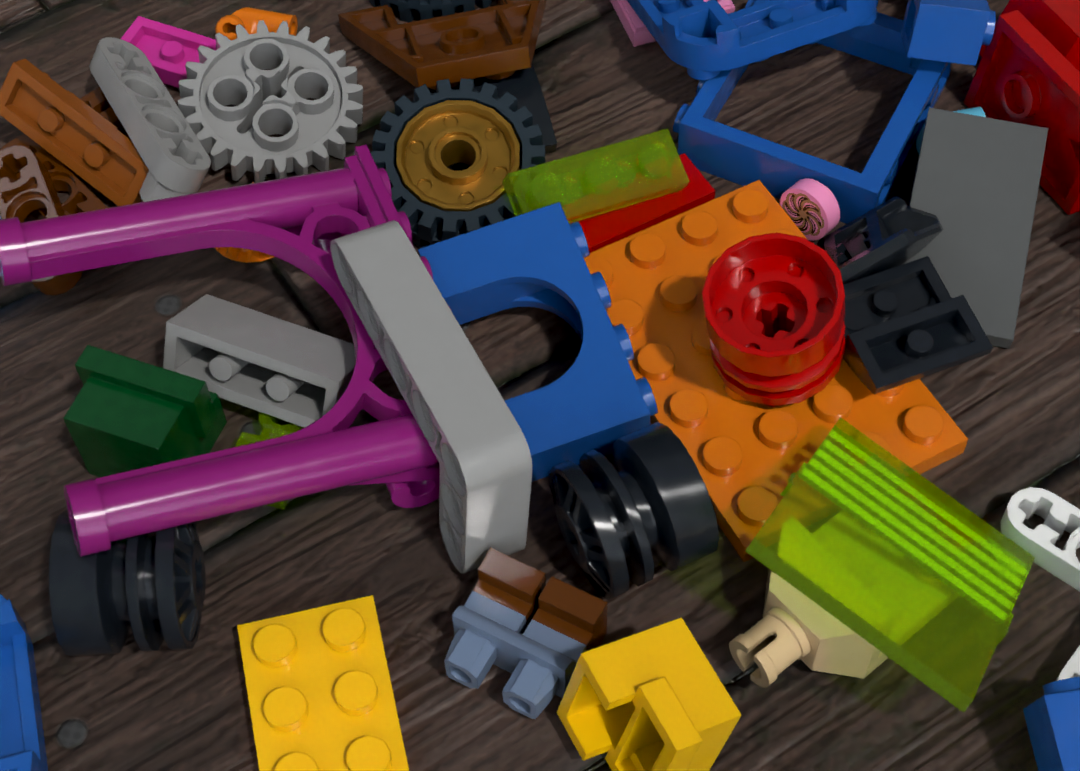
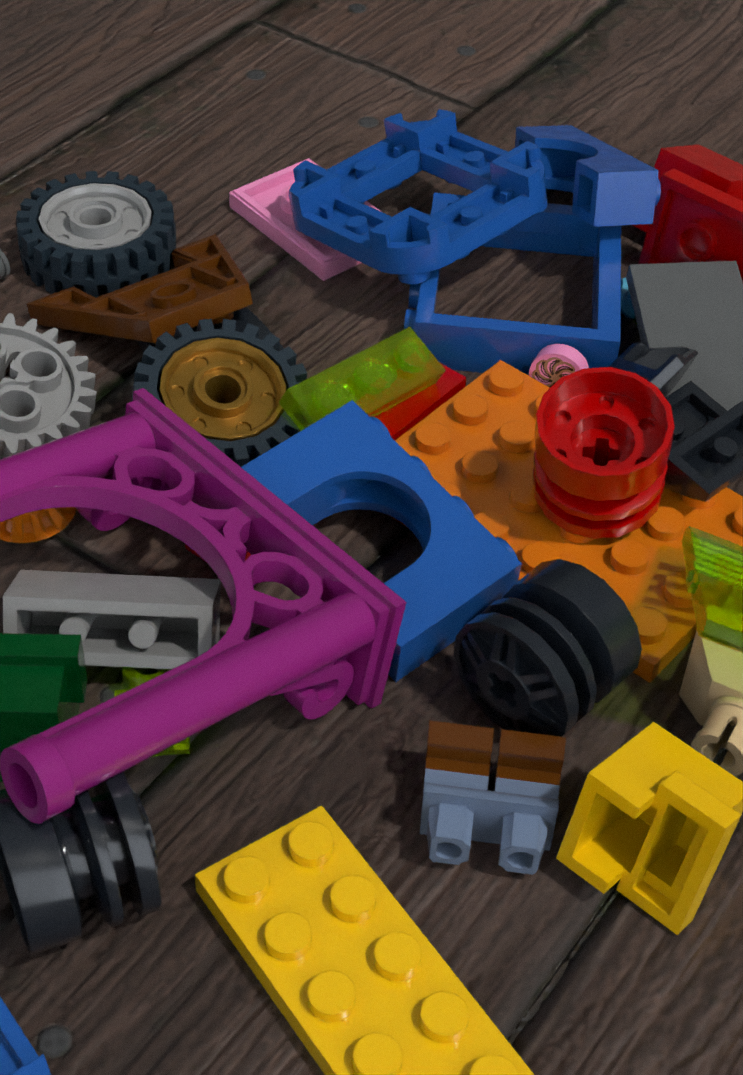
camera: 25 degrees left, 10 degrees down
(447, 389) = (349, 571): light grey beam -> none

